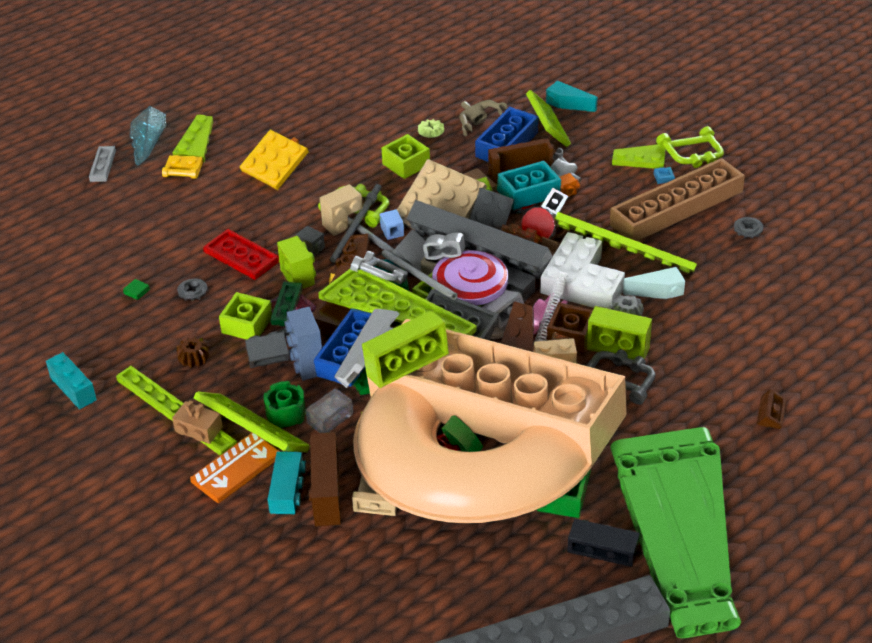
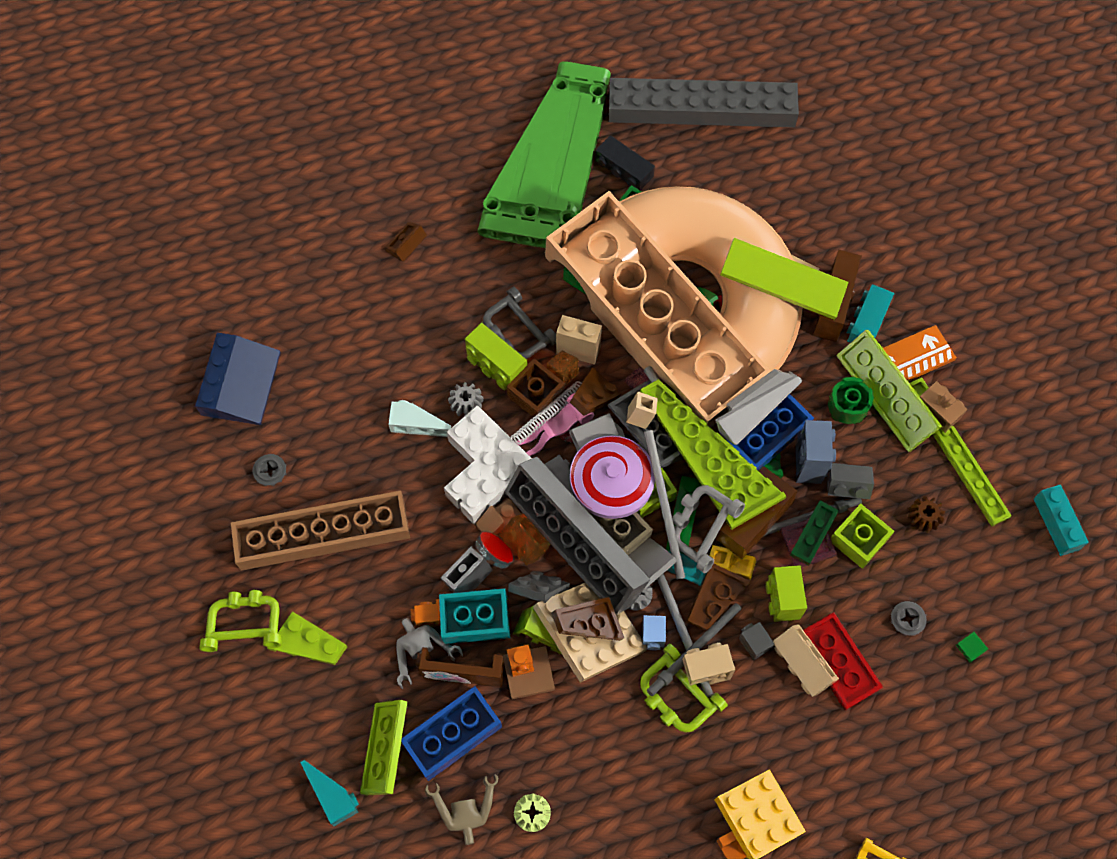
camera: 160 degrees left, 25 degrees up
(262, 235) = (805, 660): none -> tan brick
(329, 411) = (814, 381): clear brick -> none
(382, 437) = (784, 278): none -> lime tile
(405, 156) = (592, 747): lime brick -> none
(405, 349) = (735, 344): lime brick -> none
(444, 188) = (590, 620): none -> reddish brown wing
(448, 246) = (624, 520): light grey brick -> none
(466, 304) = (641, 410): none -> tan brick
(482, 170) = (520, 660): none -> orange brick
(618, 241) = (432, 499): lime wing -> none
(663, 175) = (302, 596): dark azure tile -> none
(825, 267) = (237, 379): none -> dark blue slope

